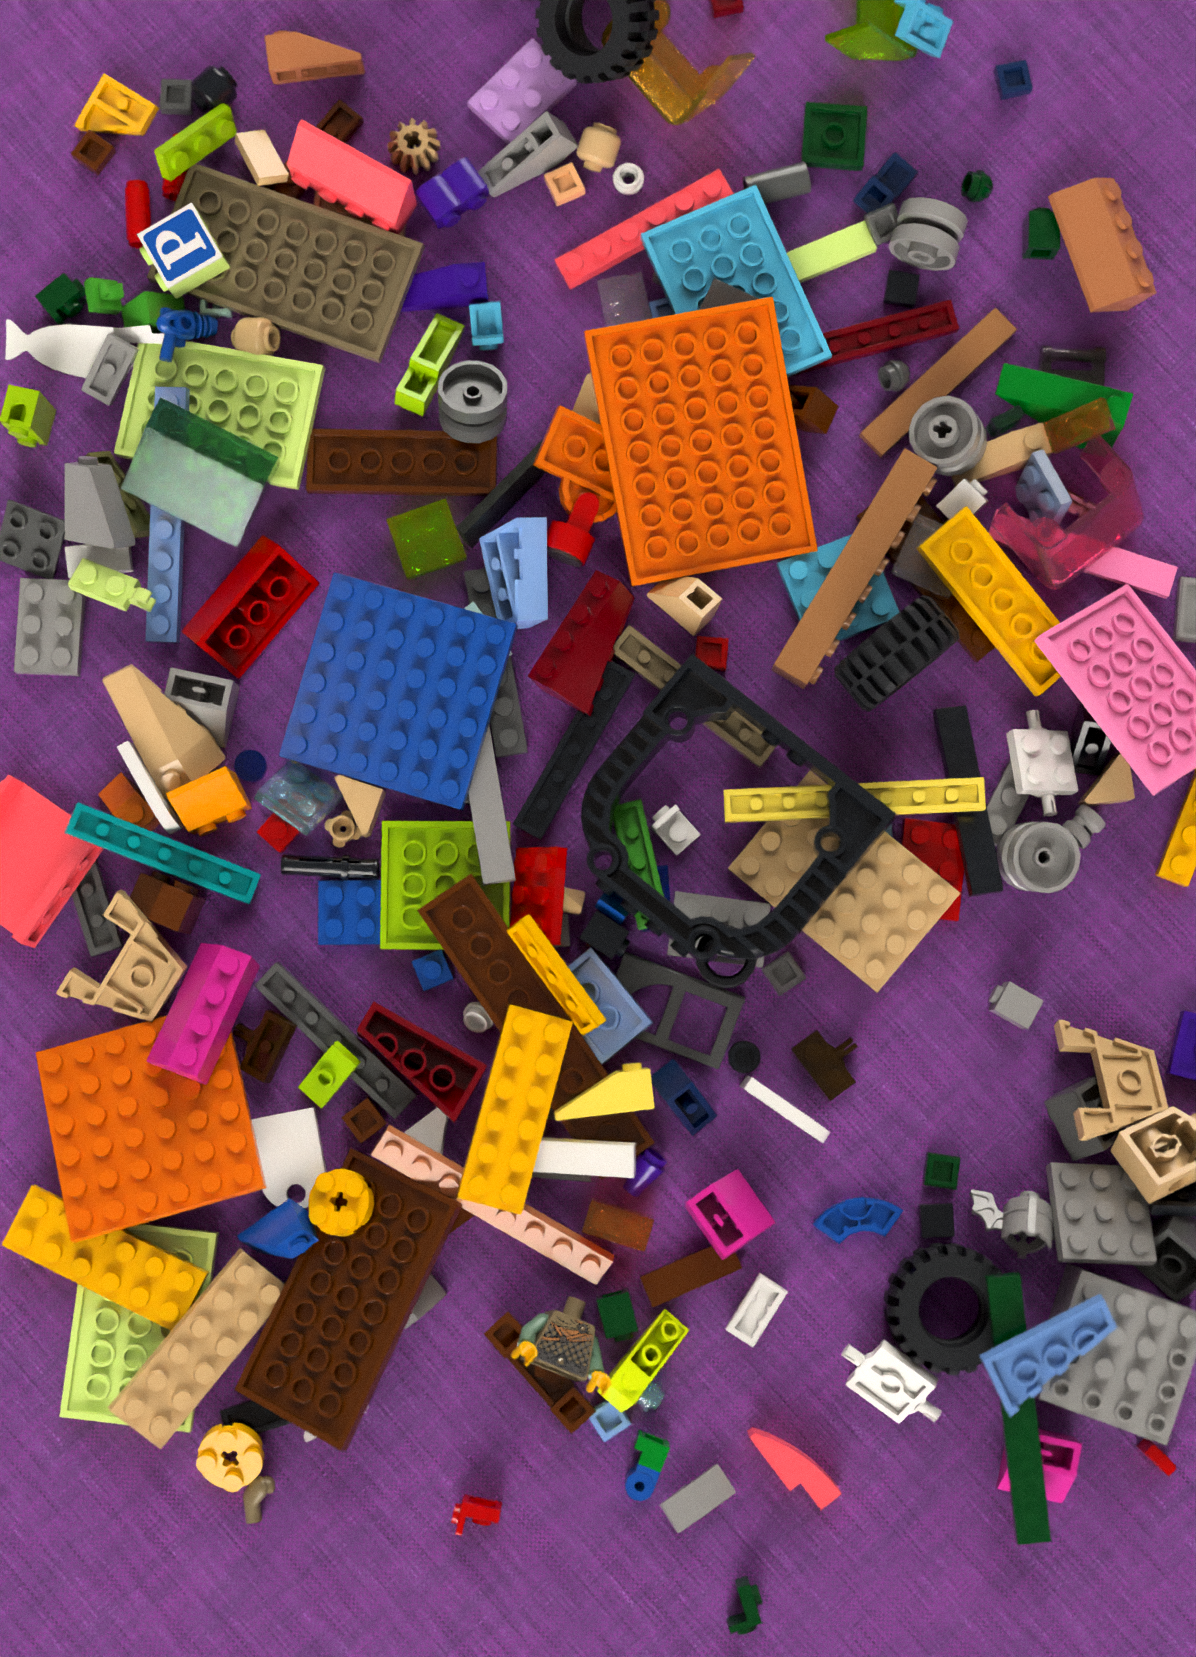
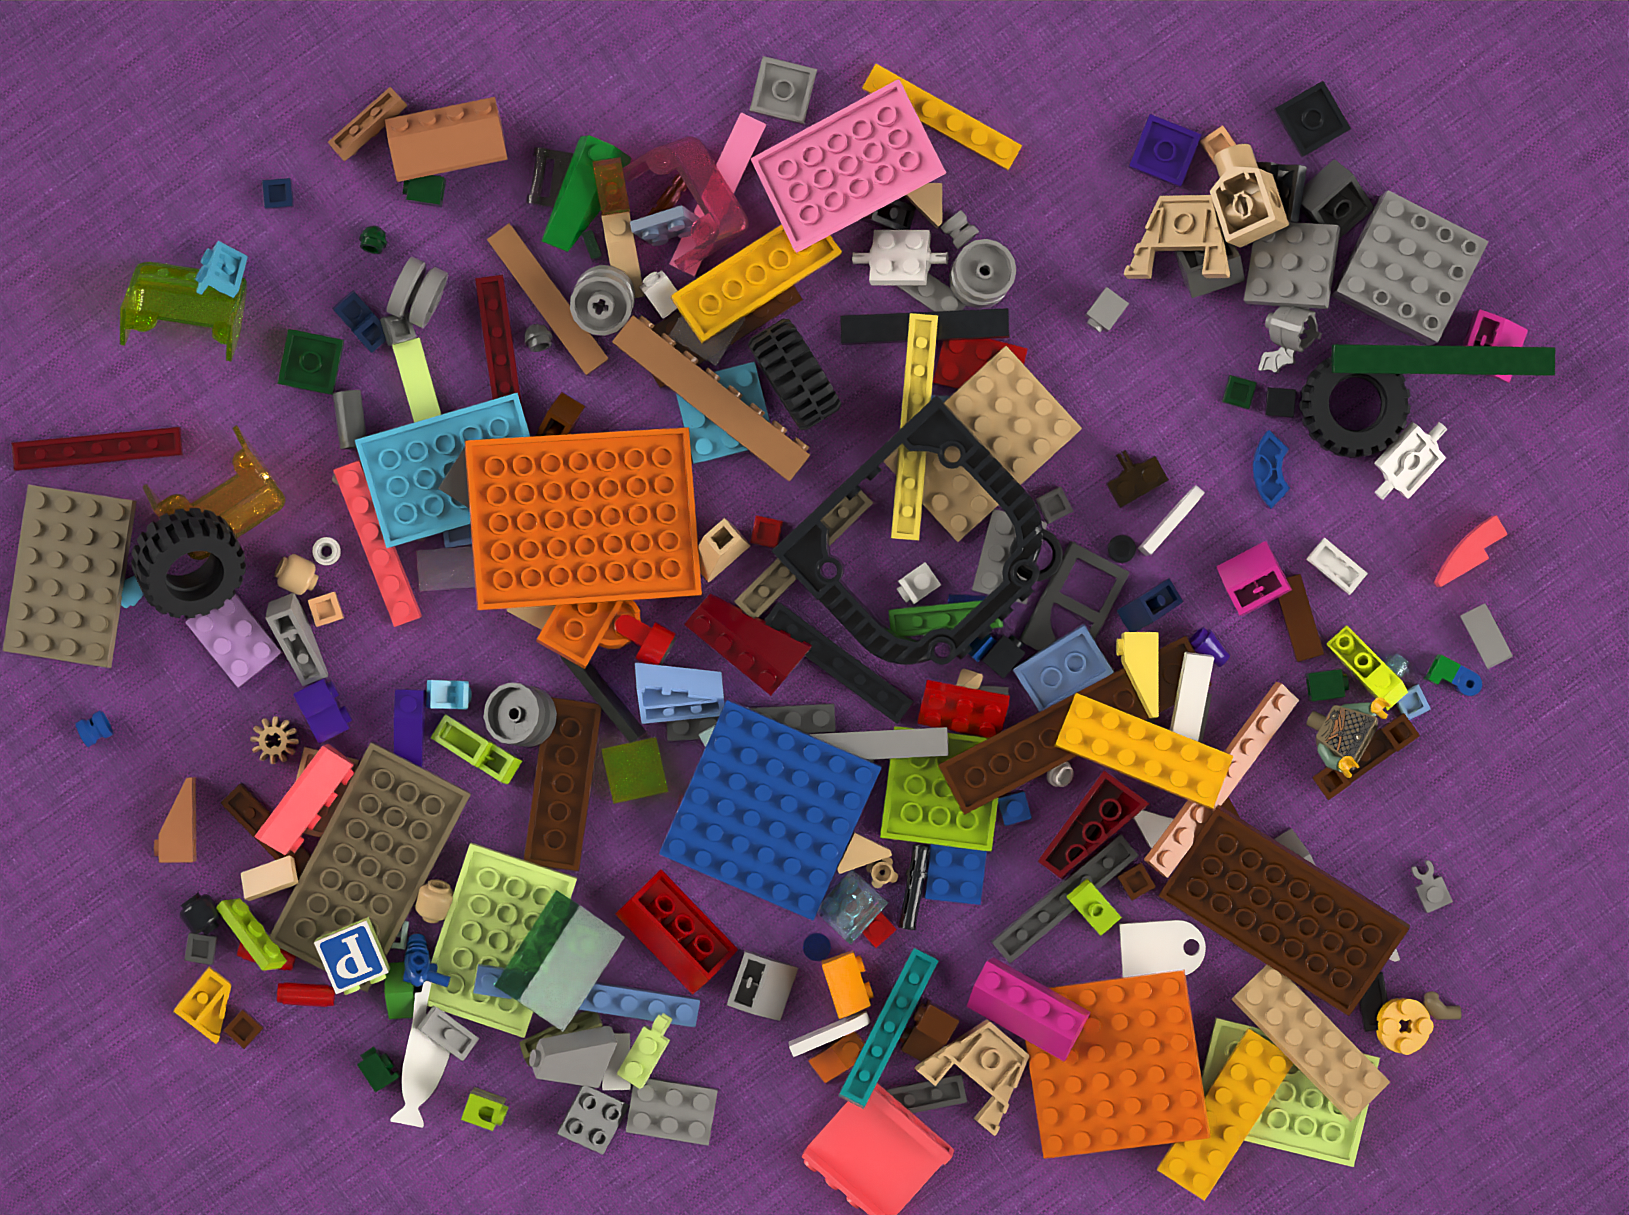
camera: 85 degrees left, 5 degrees up
(103, 295) = (378, 1032): bright green tile -> none
(167, 738) = (788, 1014): tan wedge -> none
(265, 1045) = (1061, 959): dark brown plate -> none
(281, 1232) = (1222, 961): blue slope -> none
(322, 1202) = (1190, 917): yellow plate -> none
(392, 1469) = (1432, 891): none -> light grey plate
(481, 1510) = (1475, 819): red bracket -> none
(556, 975) = (1034, 702): yellow tile -> none
(618, 1224) = (1250, 675): clear orange brick -> none
(750, 1599) = (1574, 602): dark green bracket -> none
(901, 289) = (458, 320): black tile -> none
(1038, 1354) = (1403, 343): medium blue wing -> none
(1101, 163) = (367, 124): none -> medium nougat plate
(1157, 1456) = (1499, 244): red tile -> none

